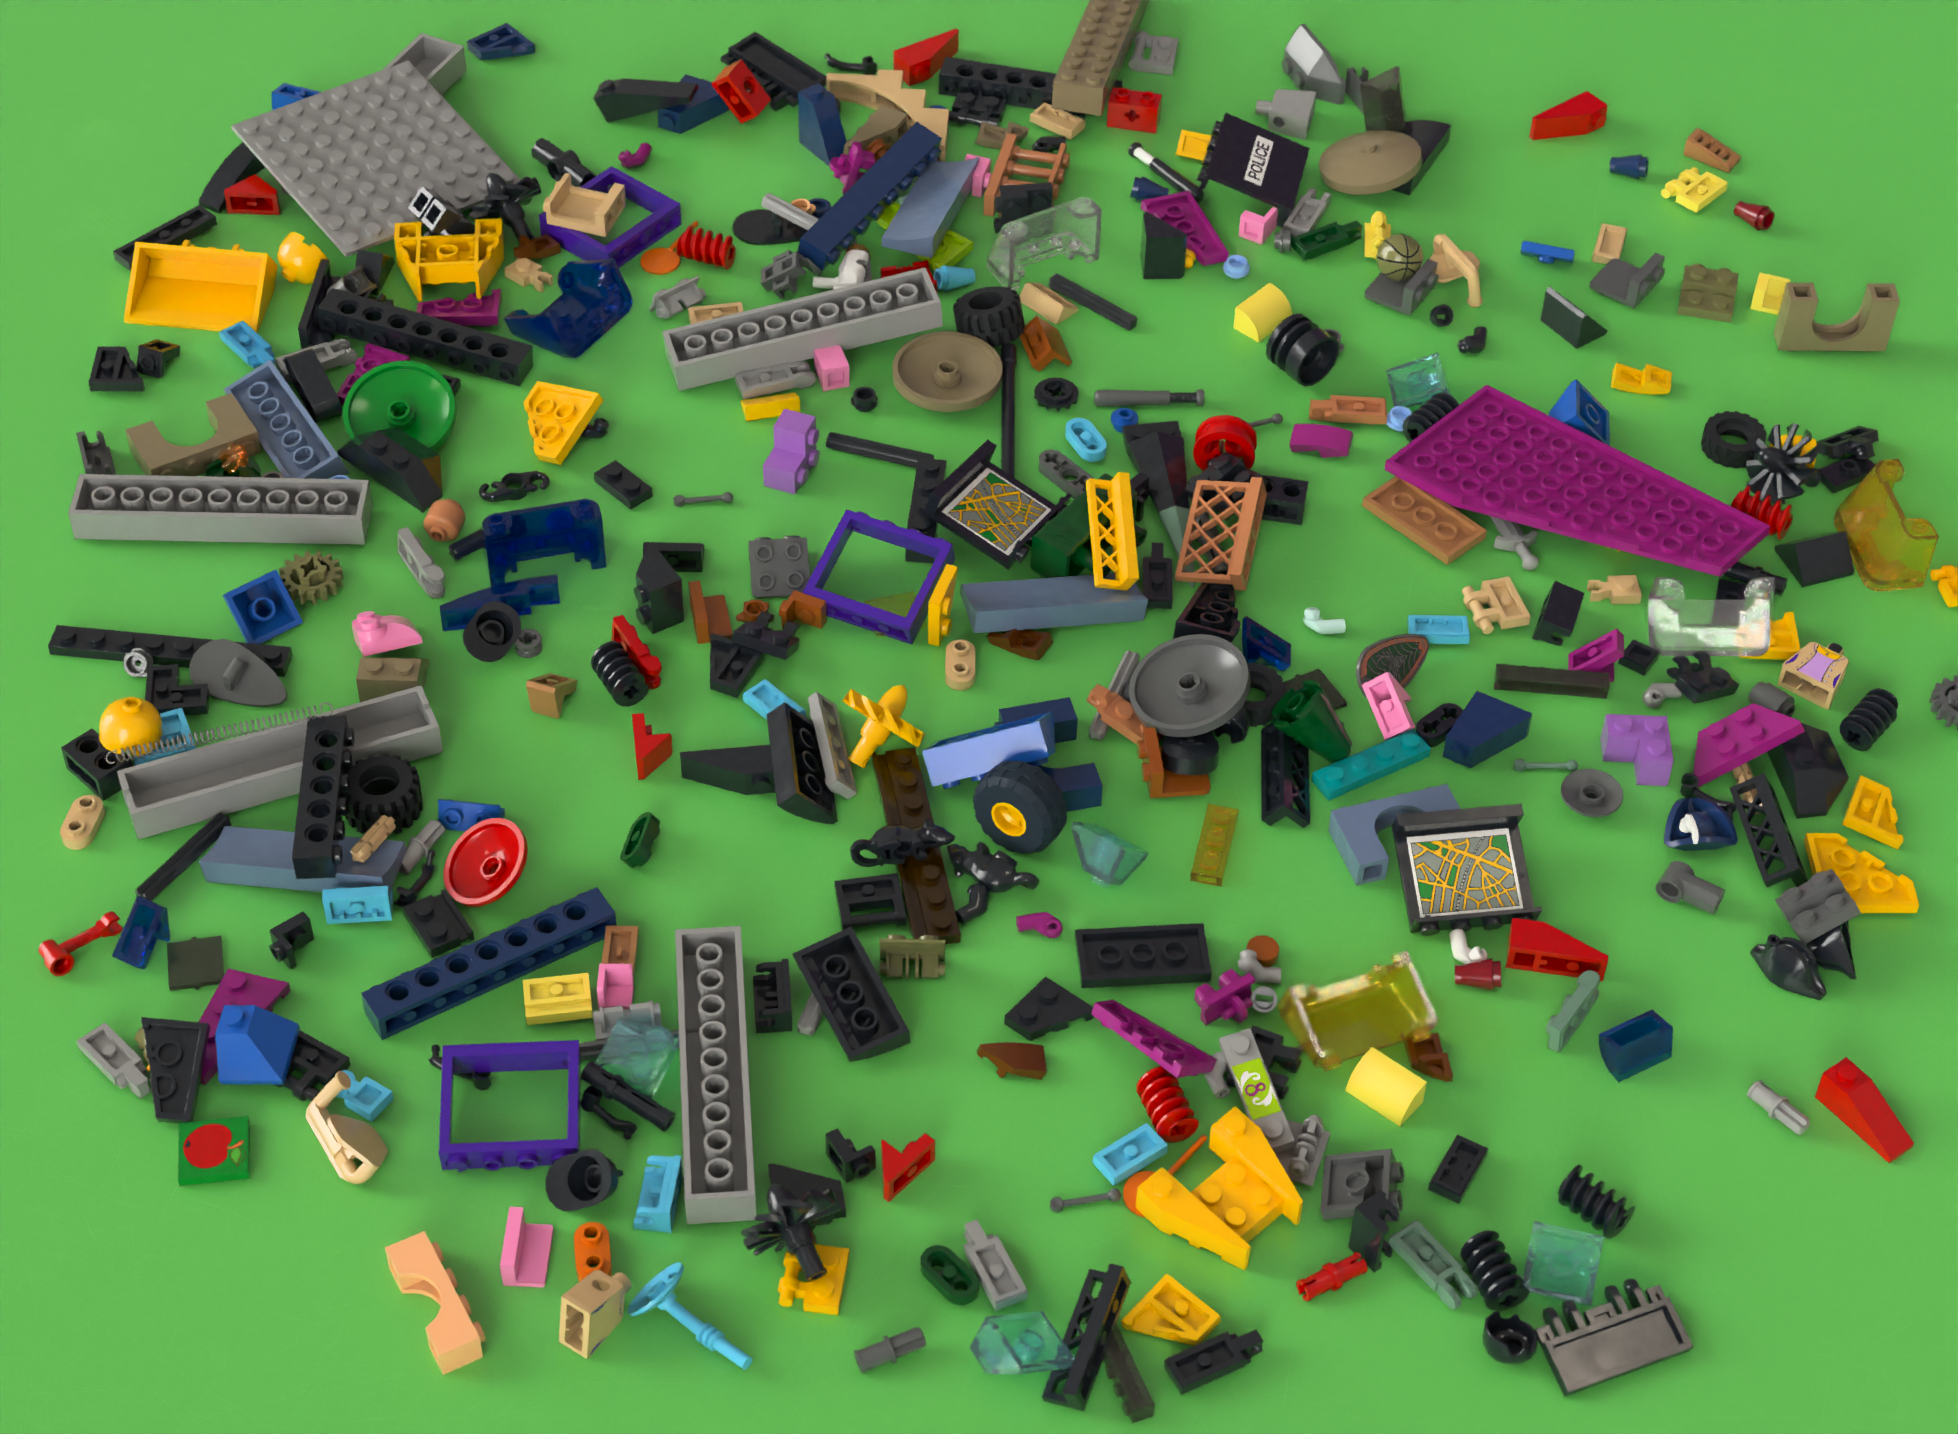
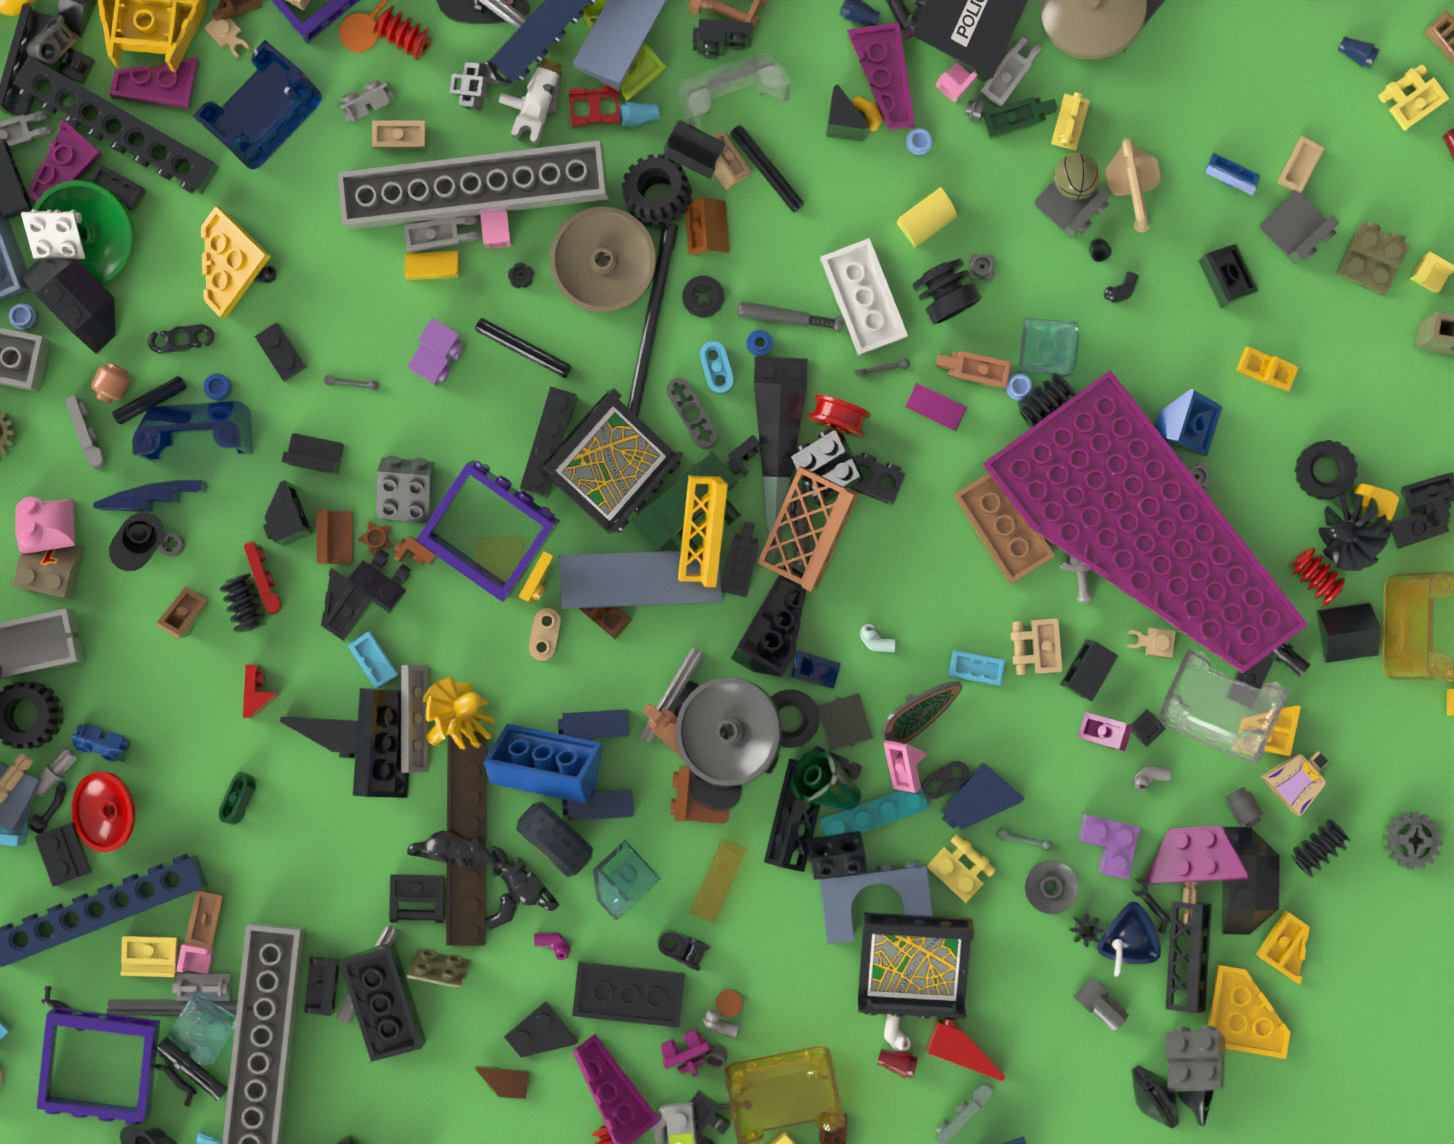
camera: 10 degrees right, 40 degrees up
(372, 405) = (54, 234): none -> white hinge
(1024, 281) = (693, 148): none -> black panel
(1189, 903) = (684, 949): none -> black piece
(1220, 374) = (863, 297): none -> white plate
(1343, 790) = (837, 855): none -> black brick
(1473, 795) = (955, 874): none -> light yellow plate
(1551, 681) = (1056, 745): clear smoke piece -> none
(1645, 825) = (1093, 929): none -> black gear
(1701, 680) = (1192, 778): black plate -> none

